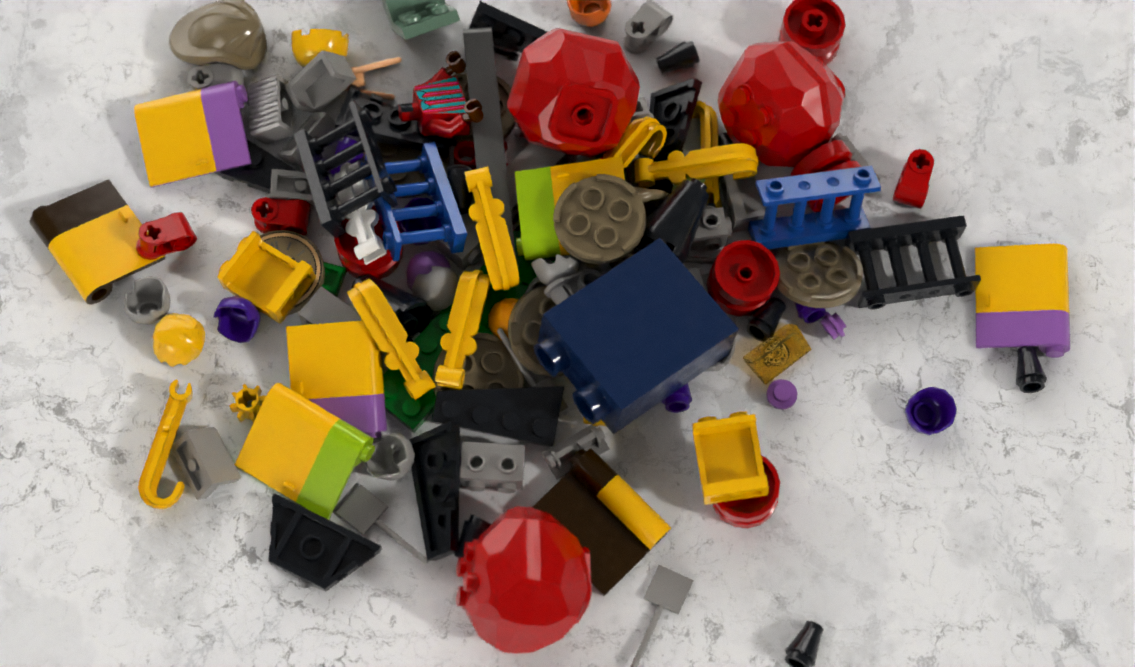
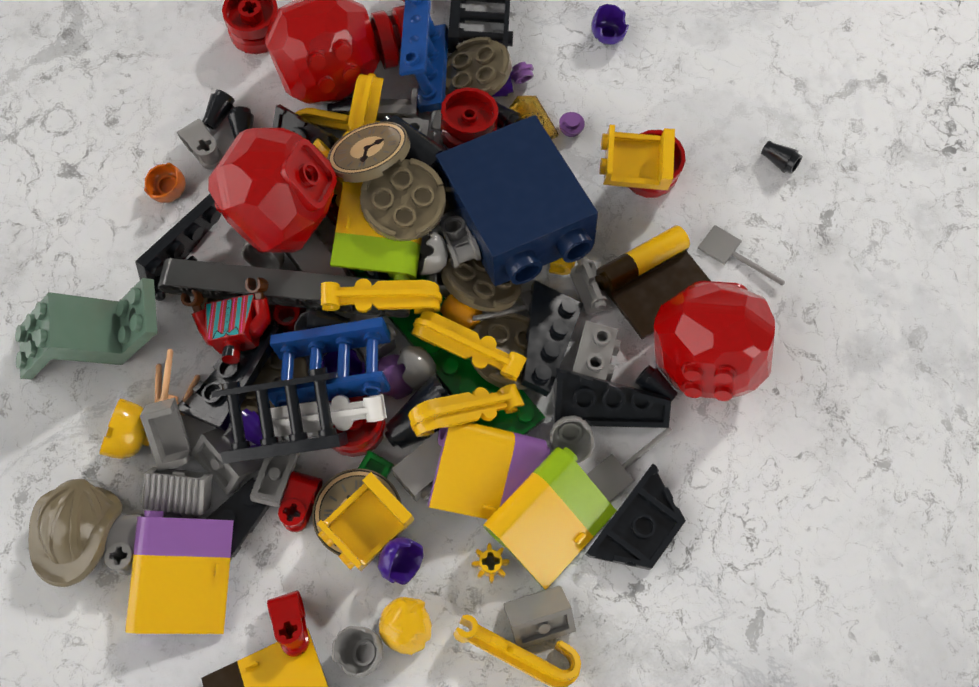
camera: 80 degrees left, 0 degrees up
(644, 171) = (369, 151): none -> tile
(696, 30) = (217, 109): none -> black cone

